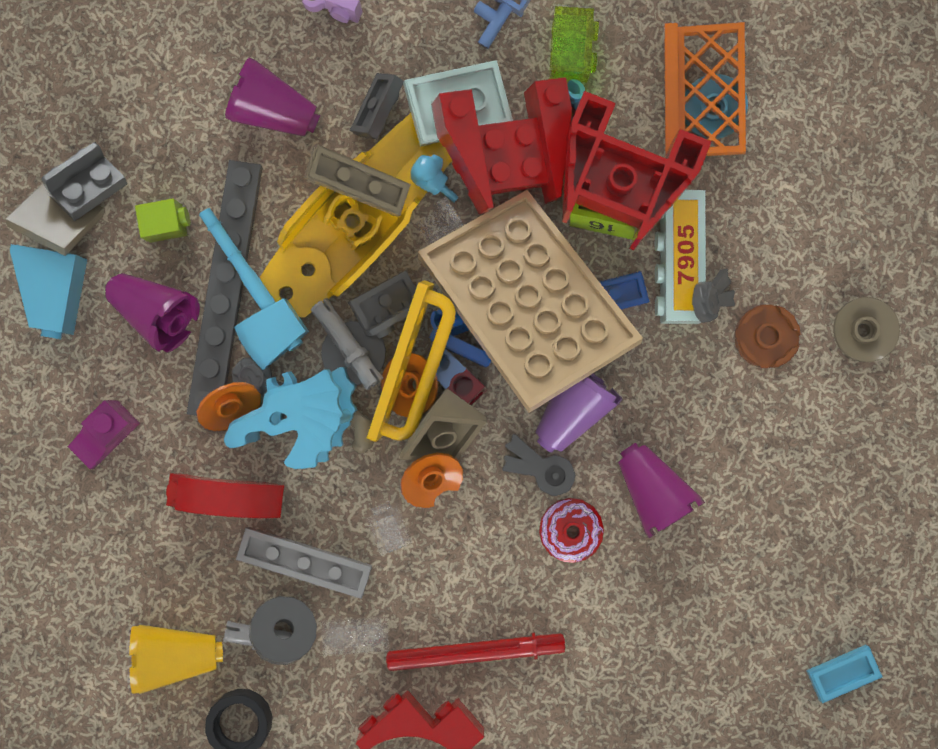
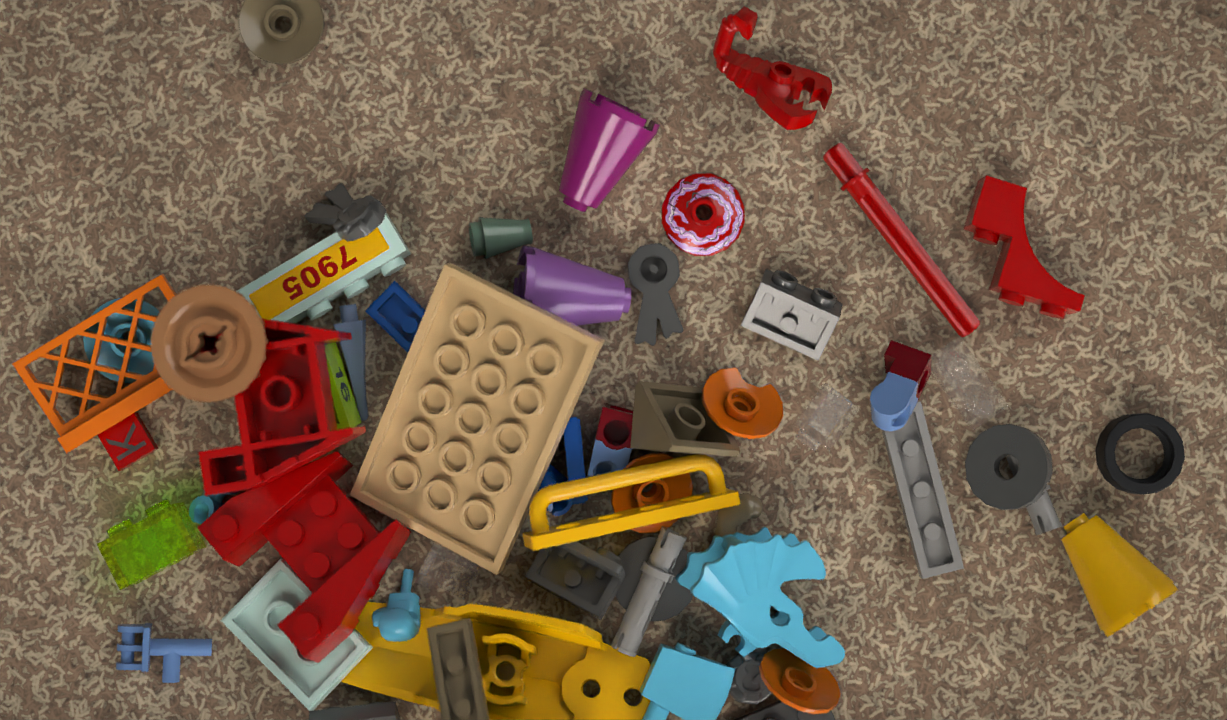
camera: 120 degrees left, 0 degrees up
(224, 497) = (903, 624): red arch -> none
(374, 586) = (899, 393): none -> leg
(470, 549) = (793, 313): none -> bracket
(617, 247) = (355, 354): none -> sand blue piece
(633, 628) = (771, 84): none -> red animal
(638, 387) = (498, 235): none -> sand green cone
(647, 69) = (128, 441): none -> red tile
(697, 133) = (179, 338): none -> medium nougat gear
(765, 345) = (361, 138): dark orange tile -> none

